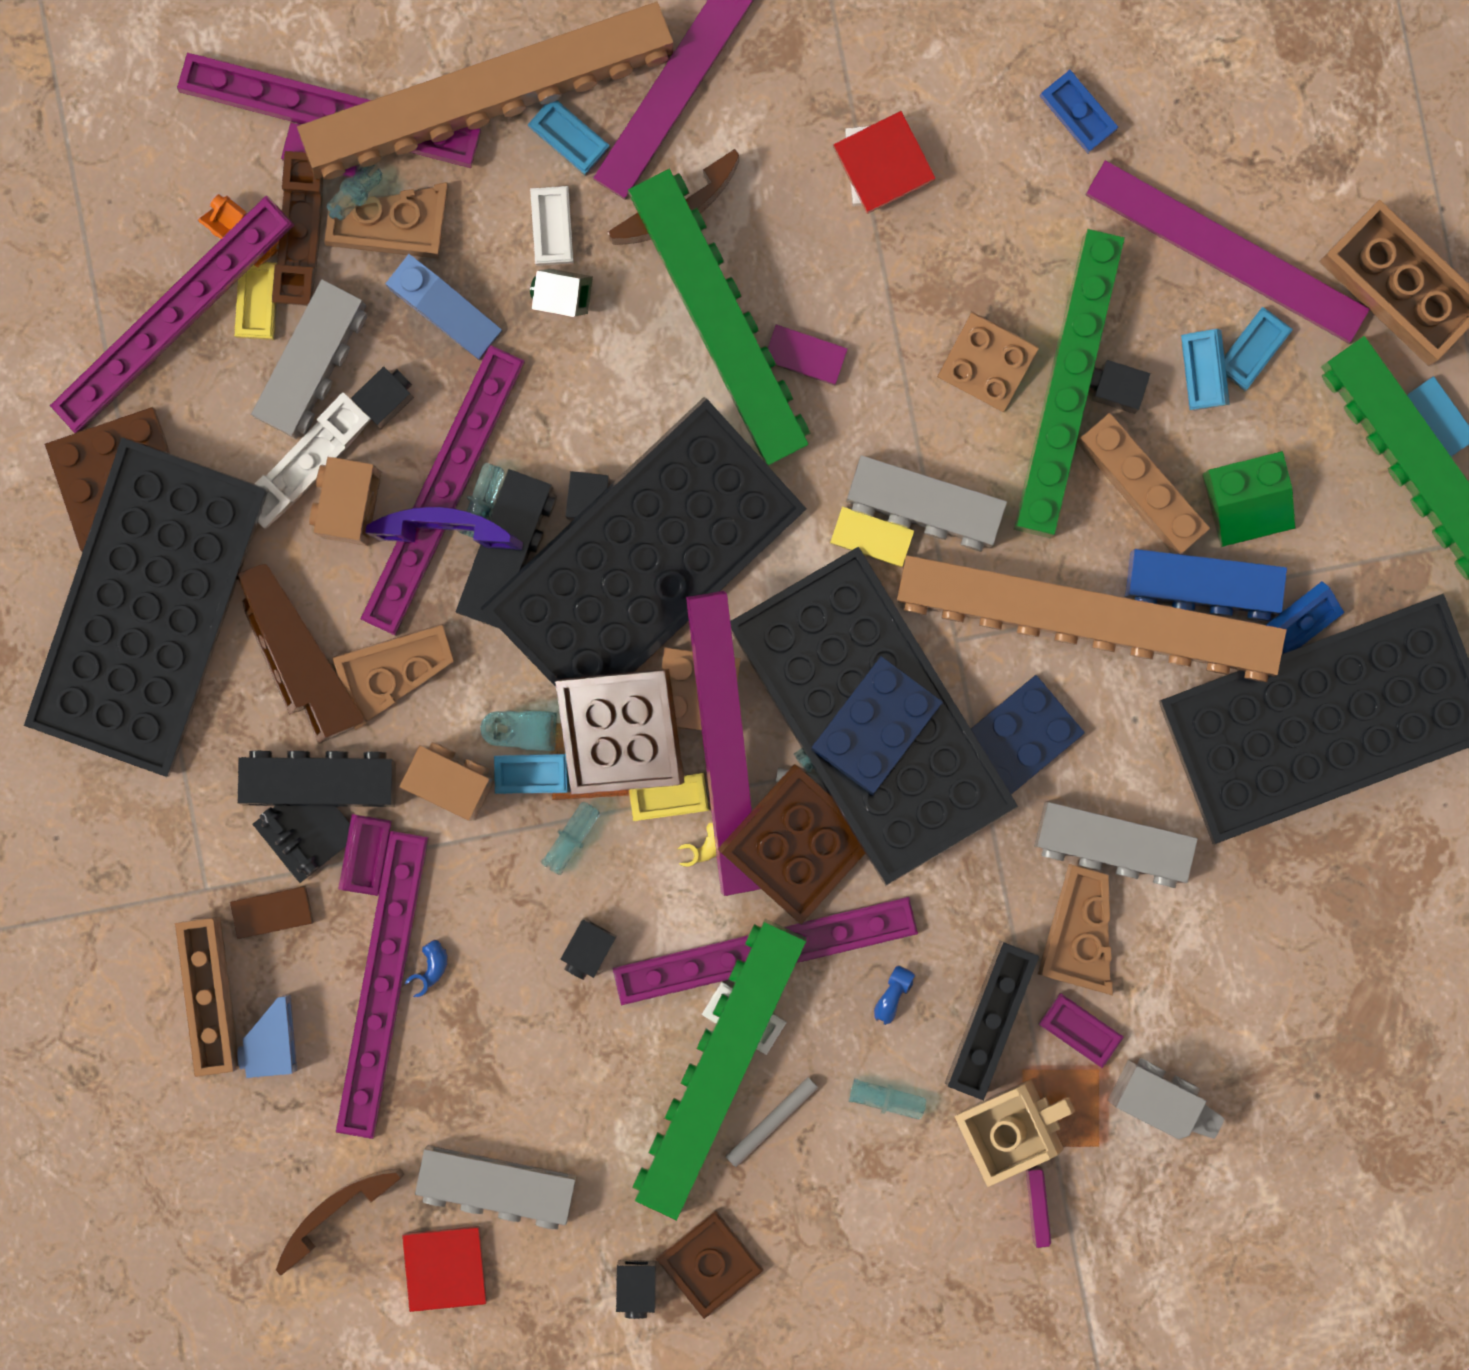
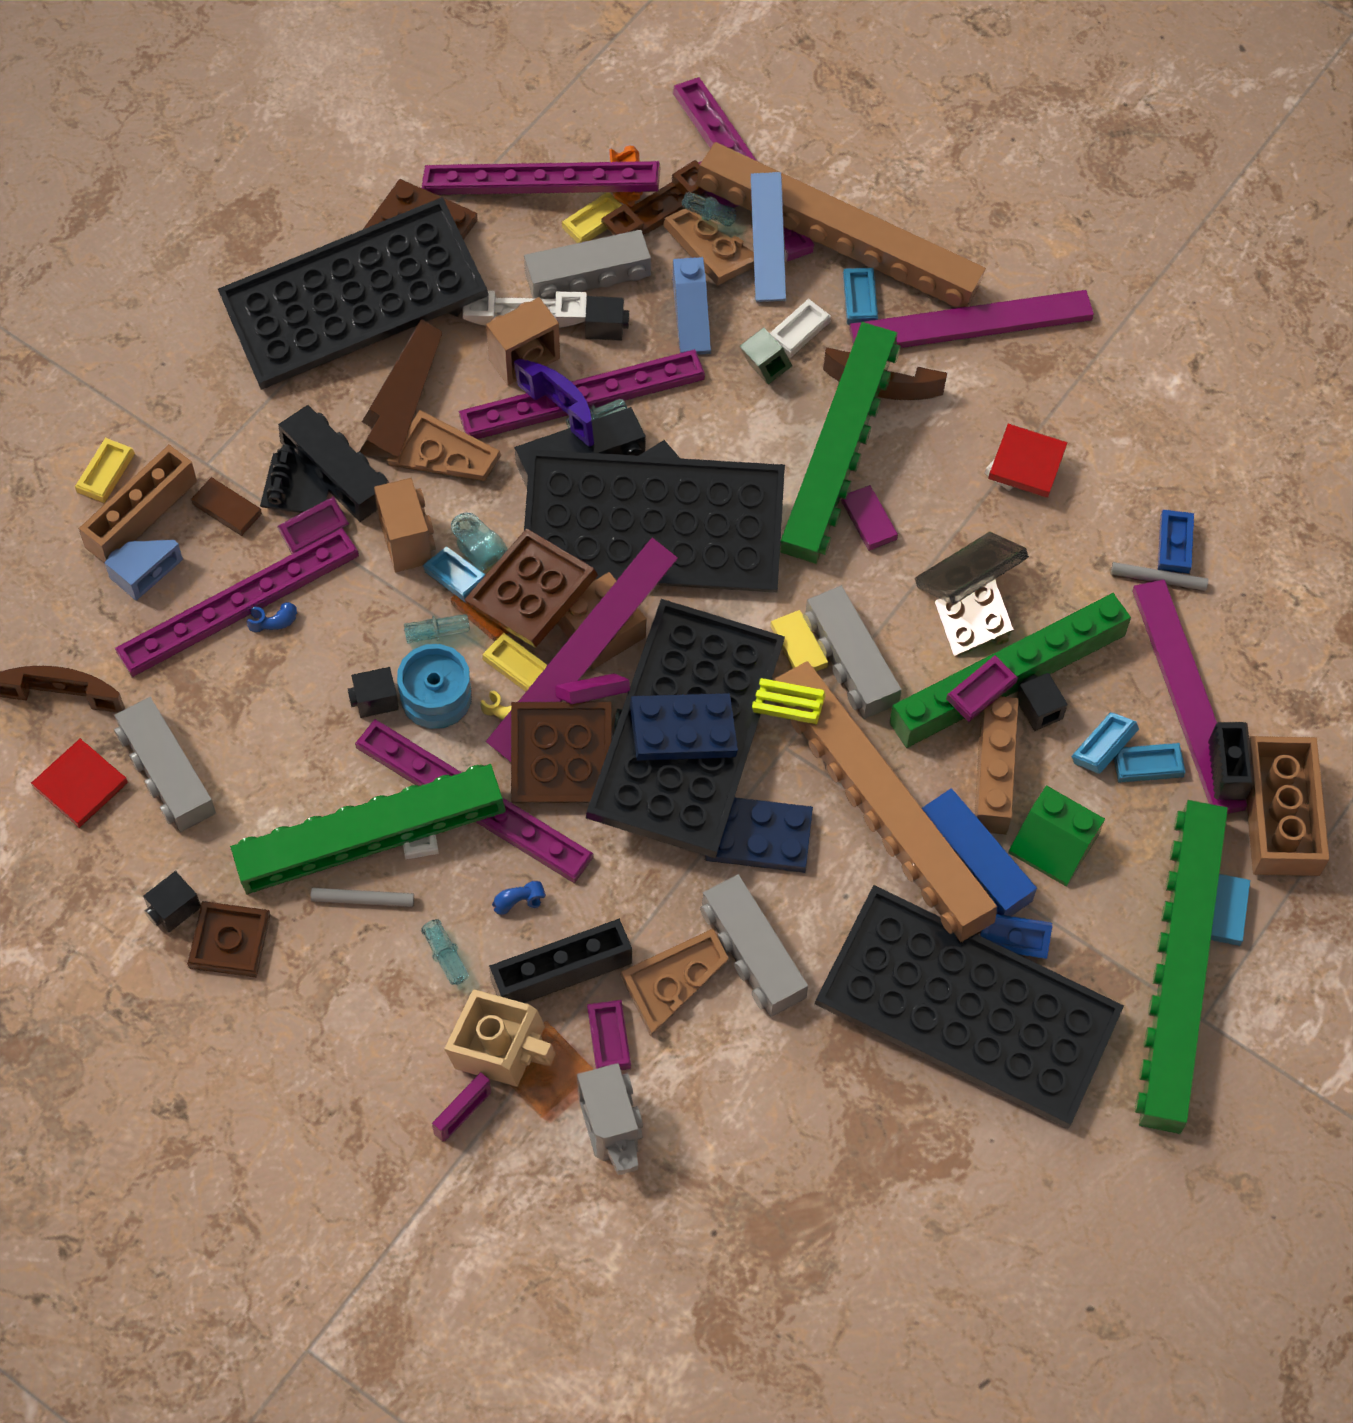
camera: 40 degrees right, 25 degrees down
(131, 988) = (104, 470): none -> light yellow tile
(442, 172) = (768, 236): none -> light blue slope
(611, 901) = (434, 686): none -> dark azure wheel
(769, 769) = (592, 688): none -> magenta tile
(905, 629) = (793, 690): none -> neon yellow tile
(944, 321) = (971, 567): none -> clear smoke tile
(1077, 439) = (981, 688): none -> magenta tile
(1094, 158) = (1155, 575): none -> light grey bar
(1330, 291) = (1231, 761): none -> black brick

